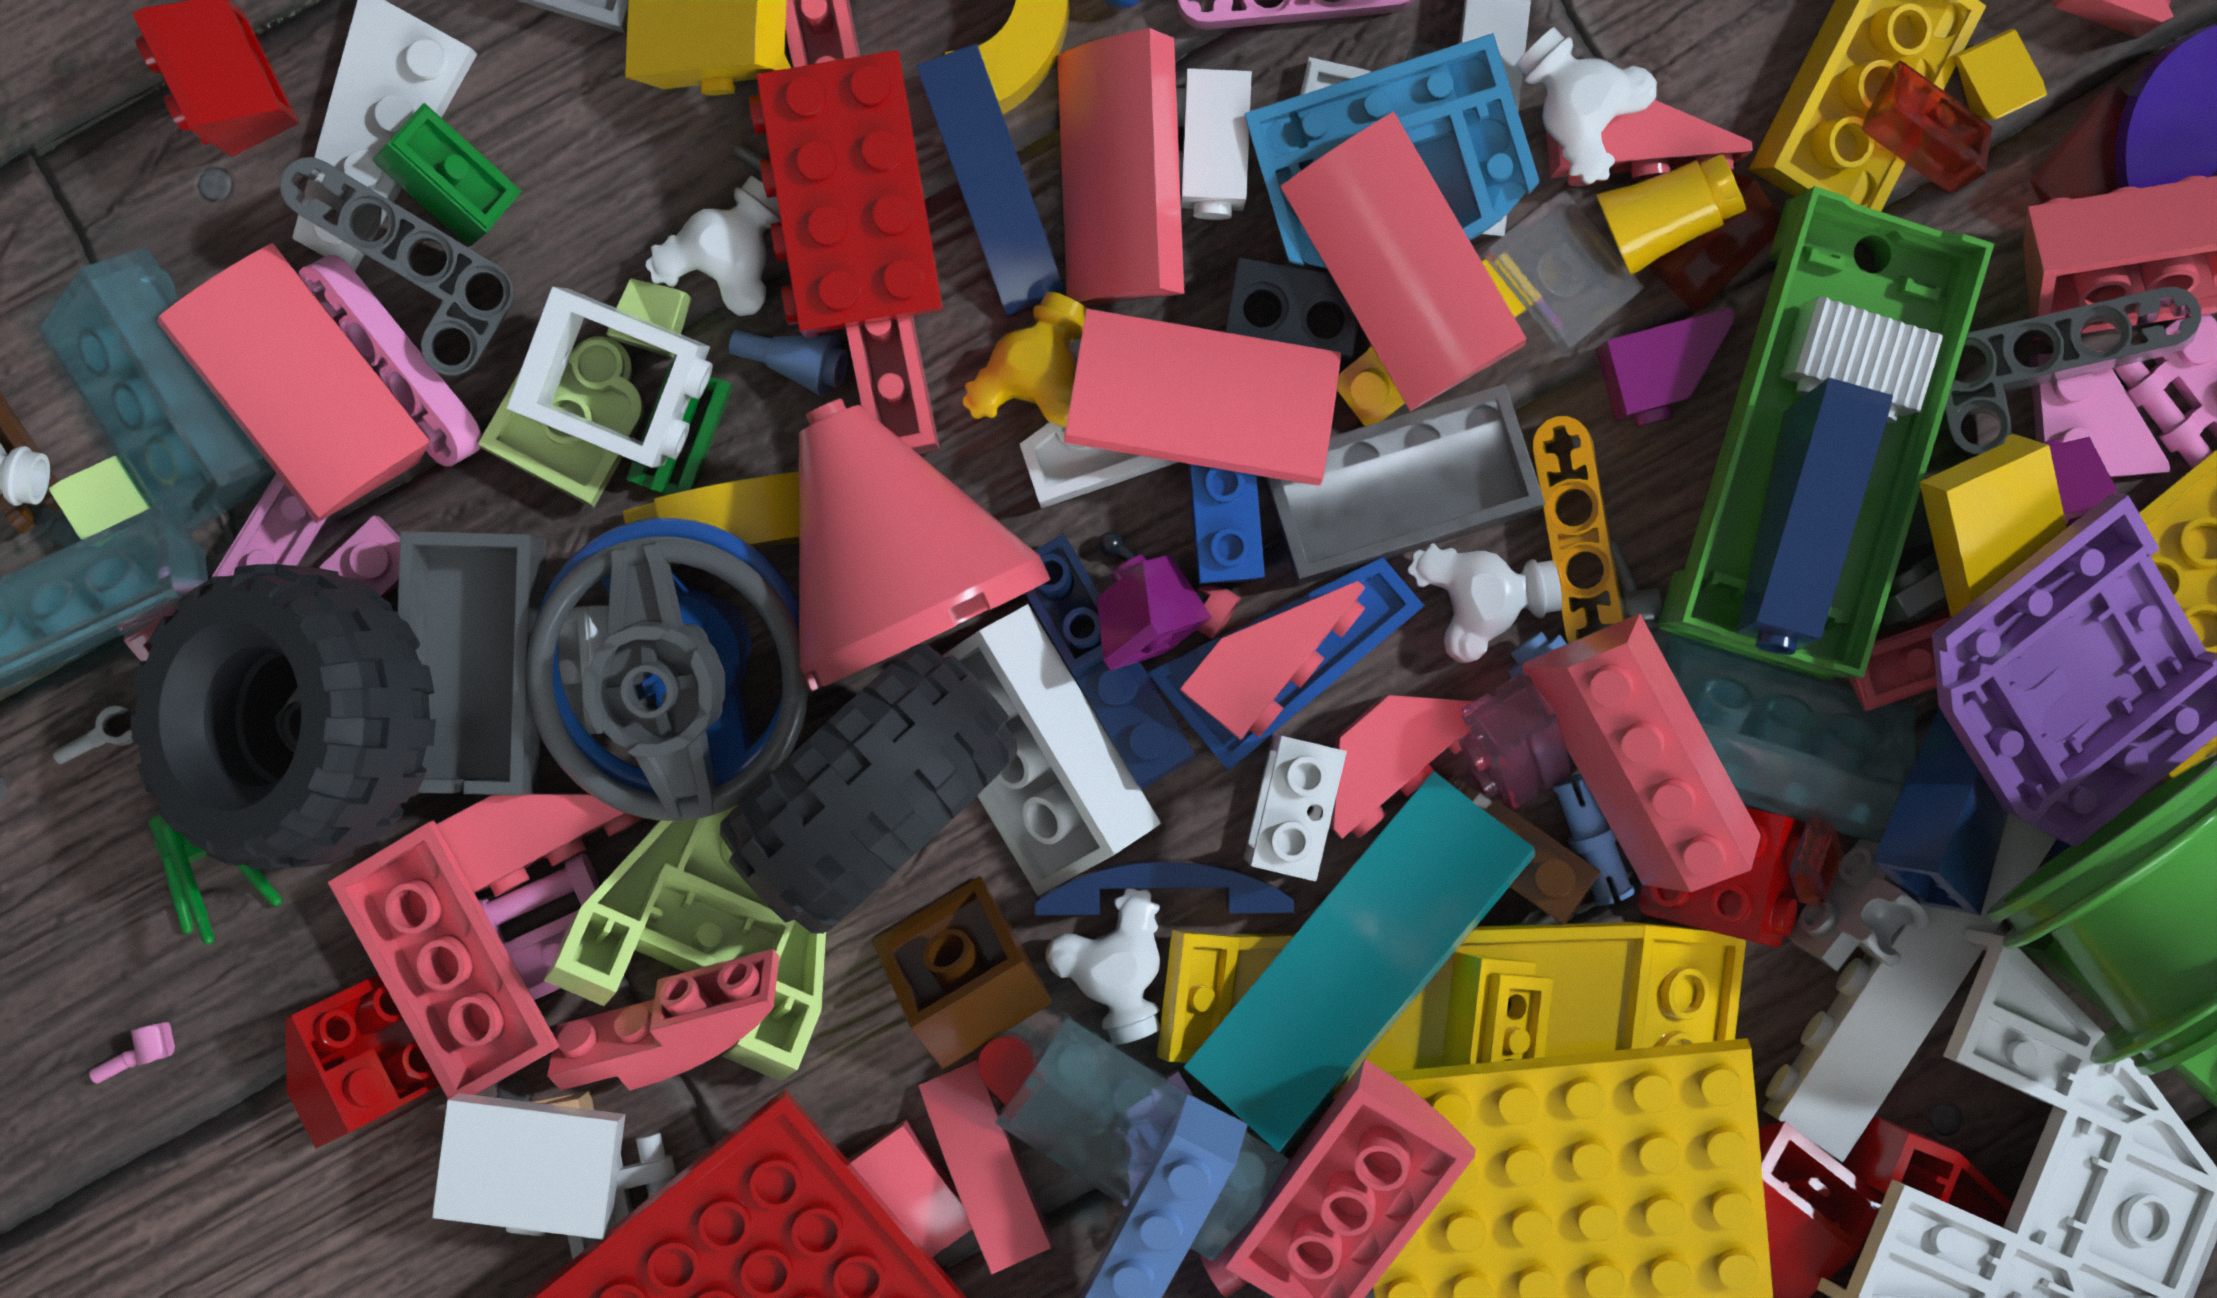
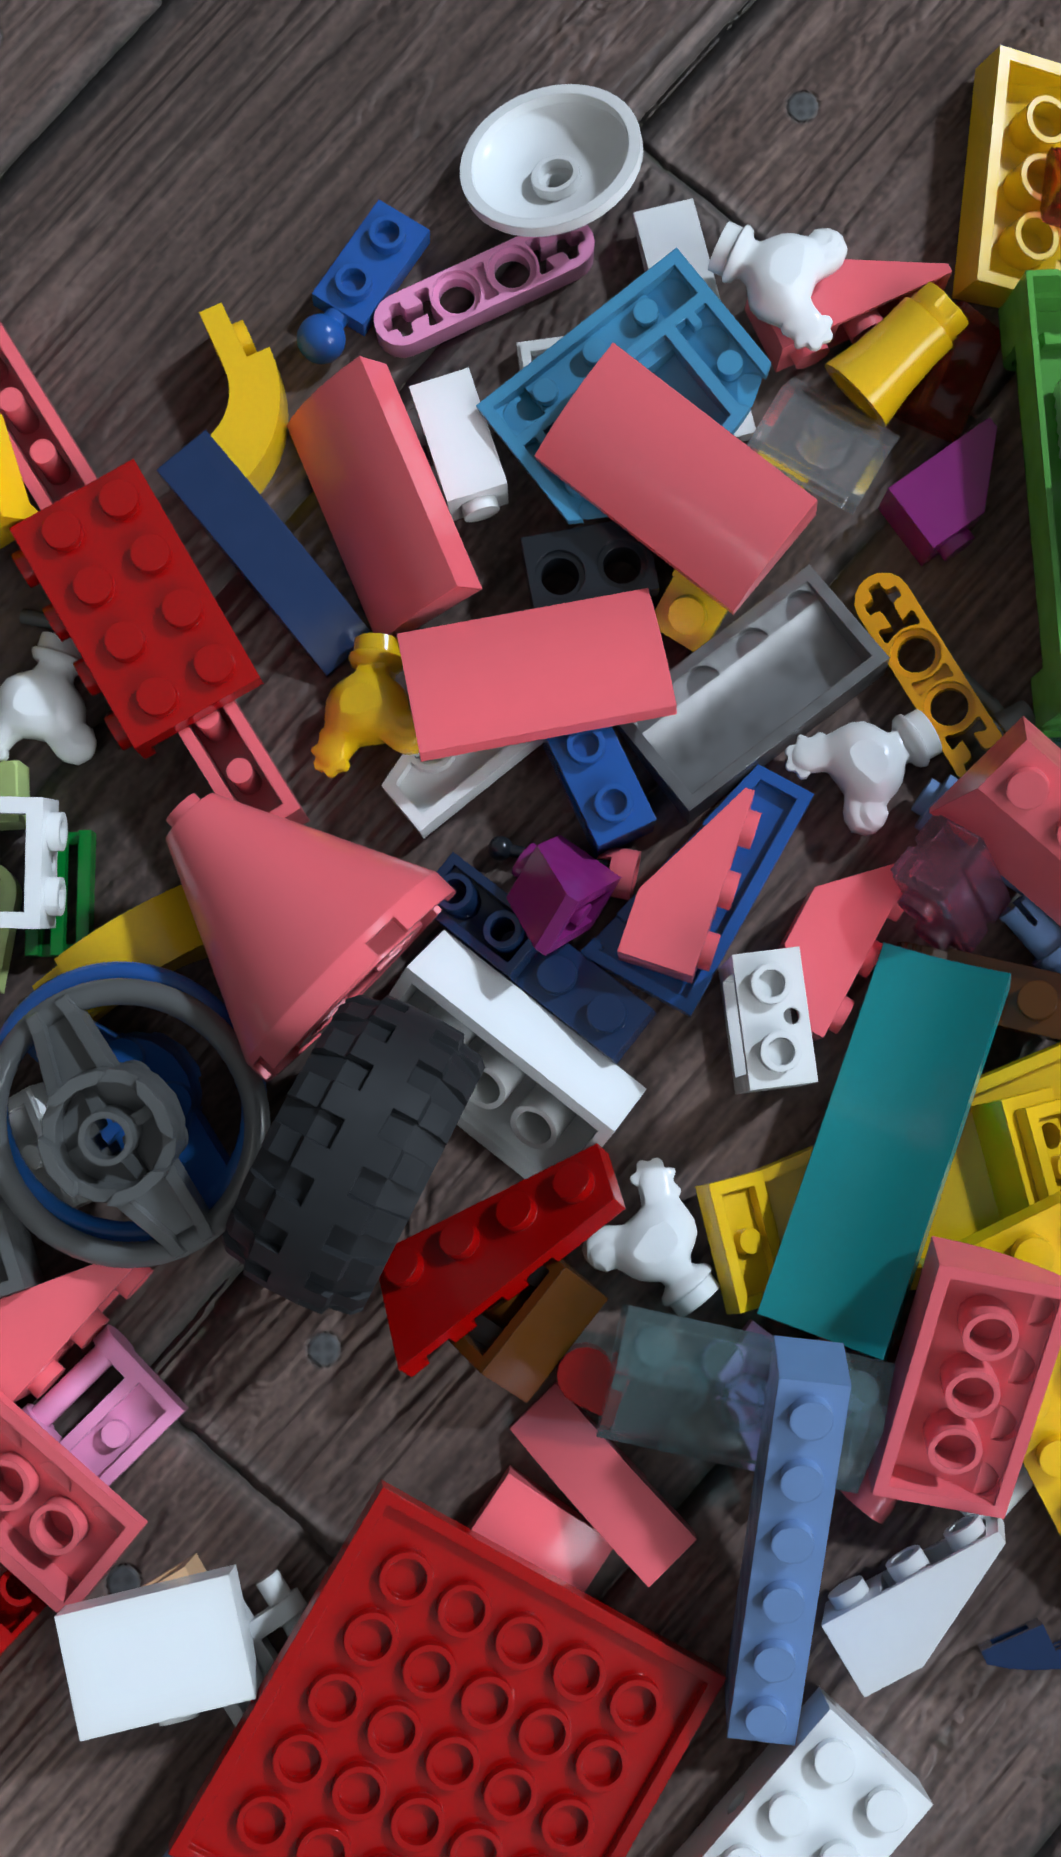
camera: 20 degrees left, 5 degrees down
(684, 1026) = (261, 1457): coral slope -> none
(692, 911) = (235, 1341): yellowish green wedge -> none
(810, 362) = (154, 782): medium blue cone -> none
(960, 918) = (488, 1251): none -> red wing
(1243, 891) = (746, 1124): dark blue slope -> none

